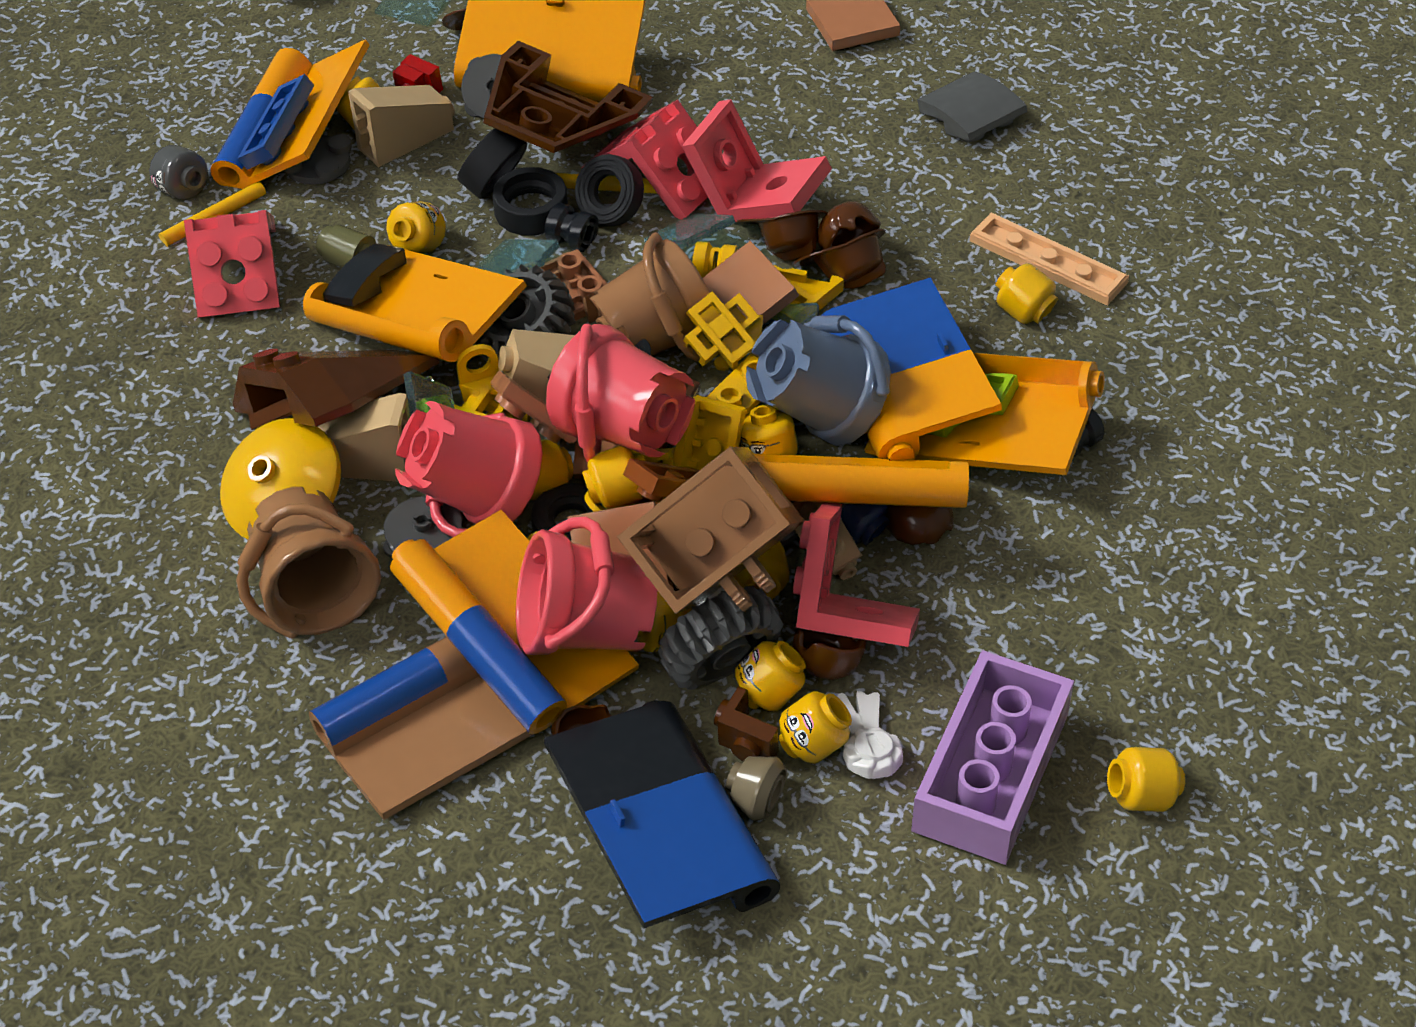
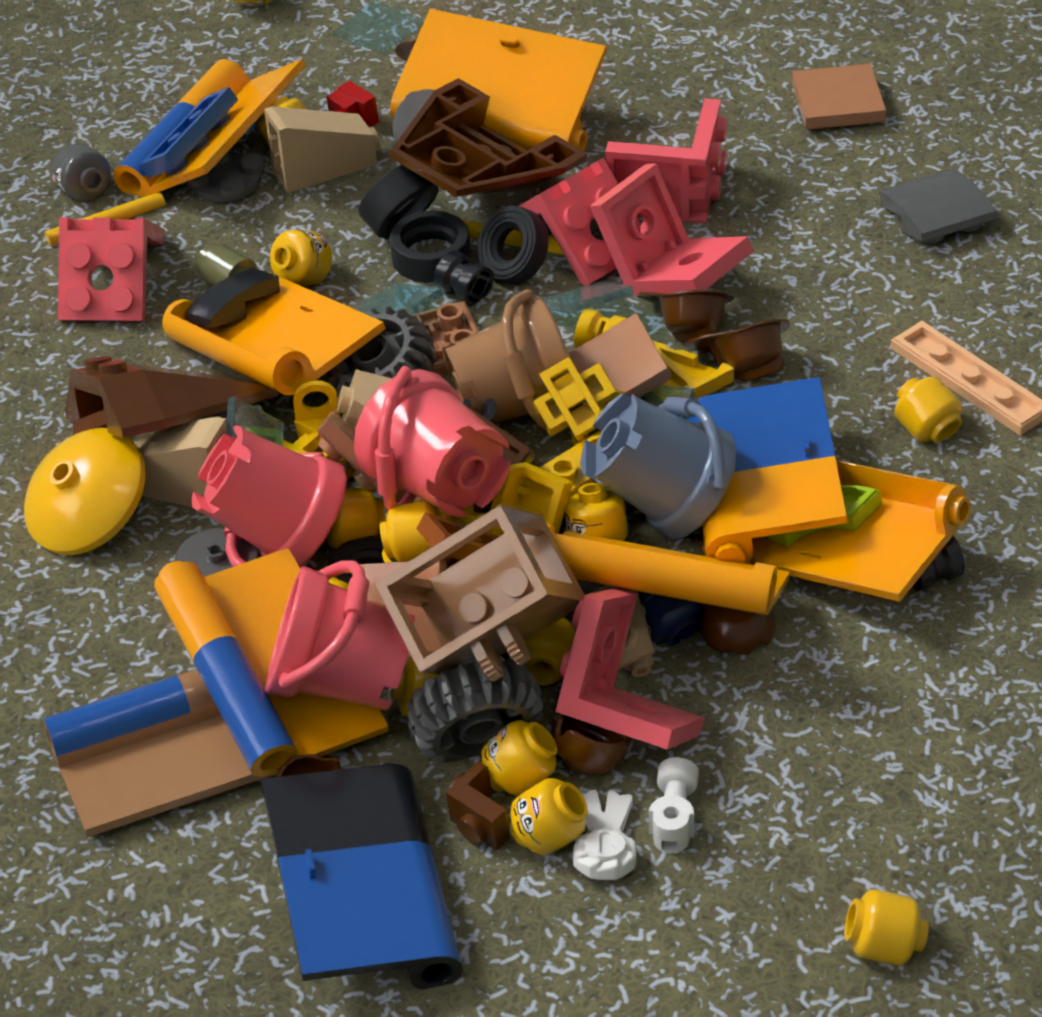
camera: 15 degrees right, 5 degrees down
(309, 564) = (83, 577): medium nougat piece -> none
(749, 97) = (689, 173): none -> coral bracket
(756, 785) = (471, 865): dark tan cone -> none
(845, 223) = (751, 307): reddish brown hair -> none
(923, 706) = (673, 815): none -> white leg
(992, 757) = (724, 876): lavender brick -> none

